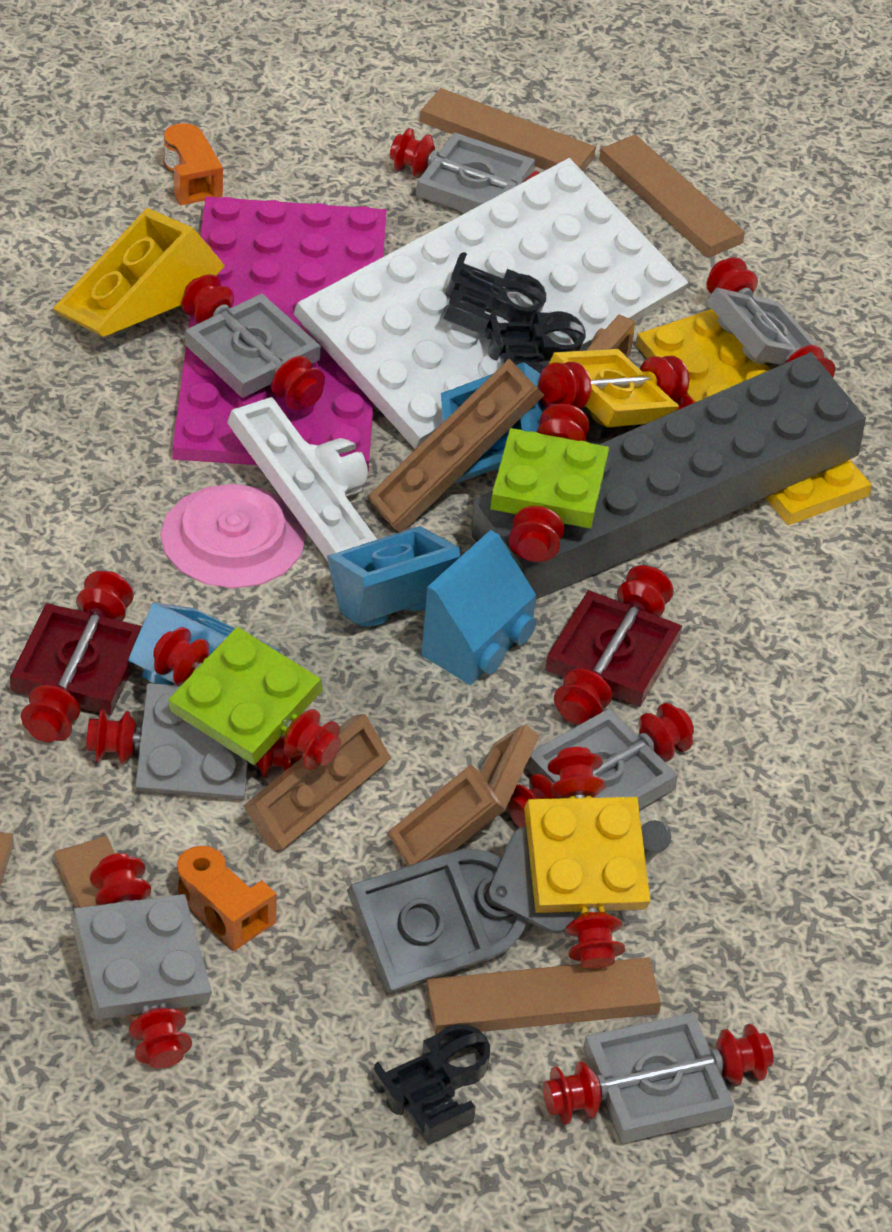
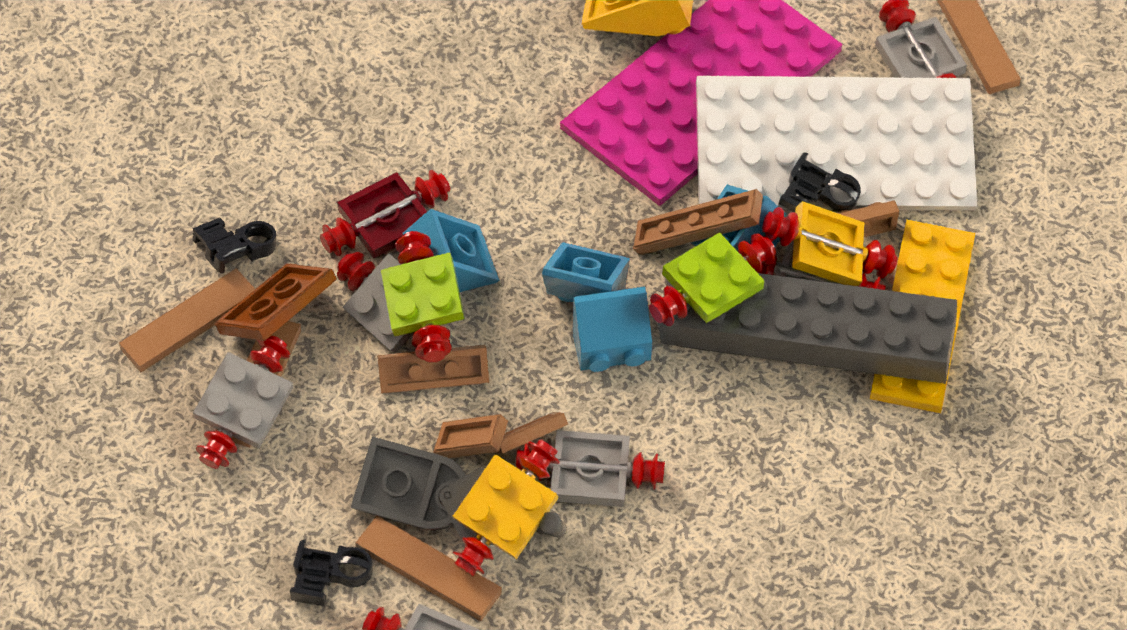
camera: 45 degrees right, 10 degrees up
(62, 823) = (275, 301): none -> dark orange tile
(223, 899) = (320, 387): orange leg -> none
(232, 536) = (545, 196): bright pink piece -> none
(252, 344) = (656, 85): light grey plate -> none
(306, 476) = (608, 188): white plate -> none
(478, 291) = (818, 132): black piece -> none
(614, 646) = (676, 402): dark red plate -> none
(672, 196) = (1036, 141): medium nougat tile -> none
(757, 322) = (983, 267): light grey plate -> none

